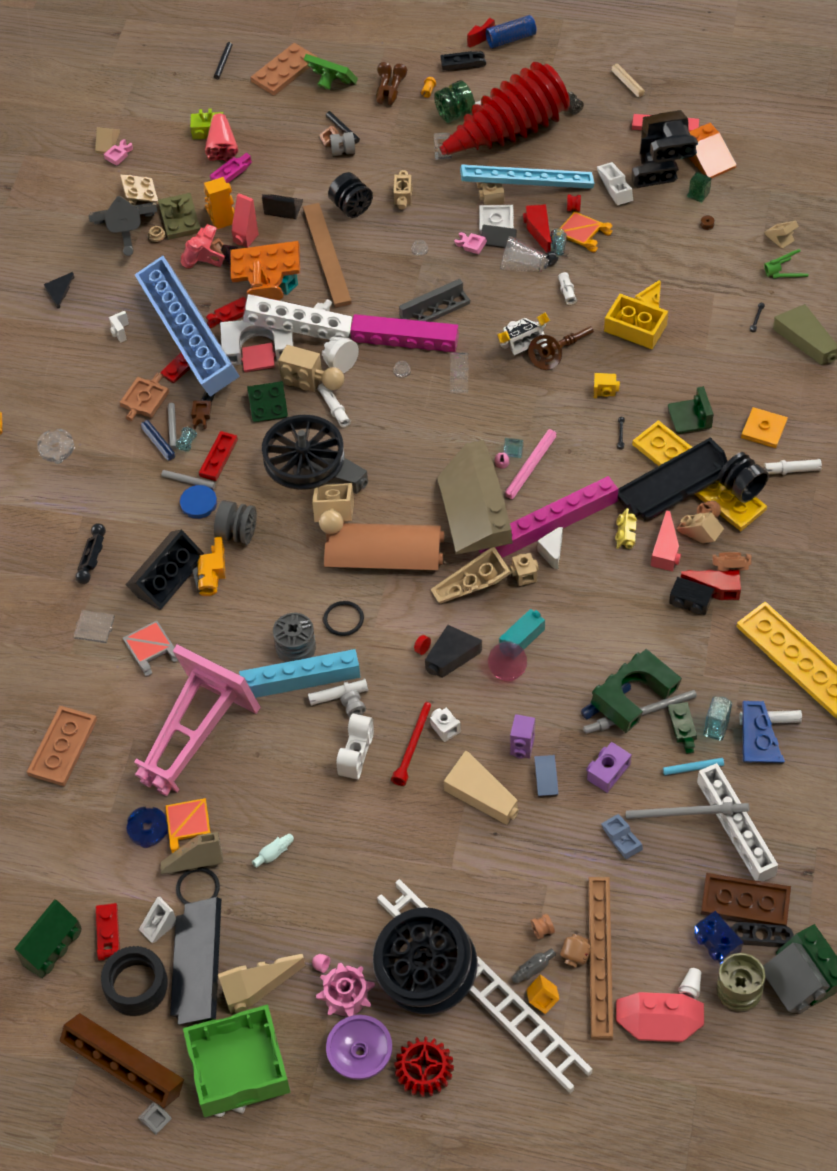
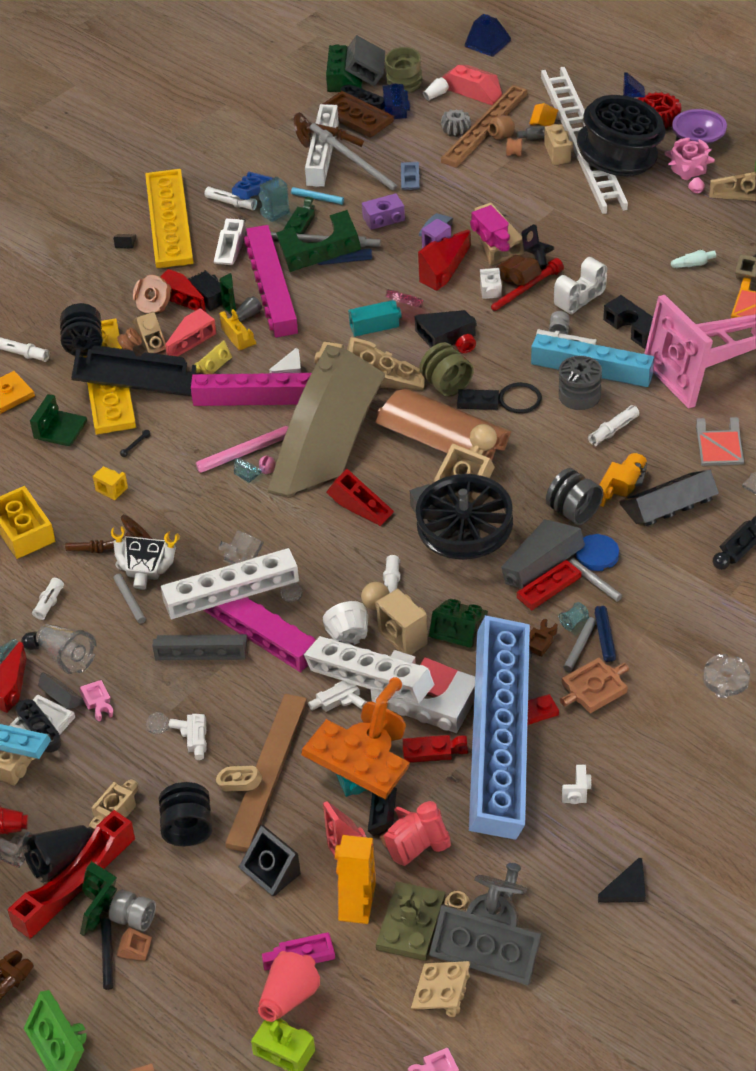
camera: 150 degrees left, 10 degrees down
(235, 474) = (541, 552): none -> dark grey slope
(249, 613) = (608, 429): none -> white pin
(303, 746) = (623, 312): none -> black arch
(338, 234) = (239, 778): none -> tan plate
(367, 135) = (99, 887): none -> dark green bracket
(377, 598) = (478, 399): none -> black plate
(390, 156) = (39, 906): none -> red arch
(393, 256) = (195, 732): none -> white piece
(408, 456) = (358, 498): none -> red slope
(413, 148) = (54, 850): none -> black cone
(414, 595) = (446, 369): none -> olive wheel
(424, 780) = (535, 247): none -> black bracket
(427, 746) = (519, 269): none -> reddish brown brick
(437, 331) = (229, 583): none -> white brick
(462, 1067) = (632, 87): none -> clear blue slope
(476, 202) = (38, 716): none -> black beam
(476, 765) = (491, 227): none -> dark pink hinge
(498, 949) = (558, 144): none -> tan brick
(503, 713) = (442, 258): none -> red wedge
(504, 313) = (129, 598): none -> light grey bar
(623, 939) = (455, 122): none -> light grey gear
(630, 567) = (236, 331): none -> yellow hinge
(640, 595) = (248, 308): none -> dark grey cone
(646, 633) = (271, 281): none -> dark pink brick
(660, 585) = (227, 293): none -> dark green slope
(697, 1114) = (487, 36): none -> clear blue slope
(721, 661) = (230, 241): none -> white slope
(753, 815) = (303, 131): none -> reddish brown dish
(822, 622) = (124, 240): none -> black slope

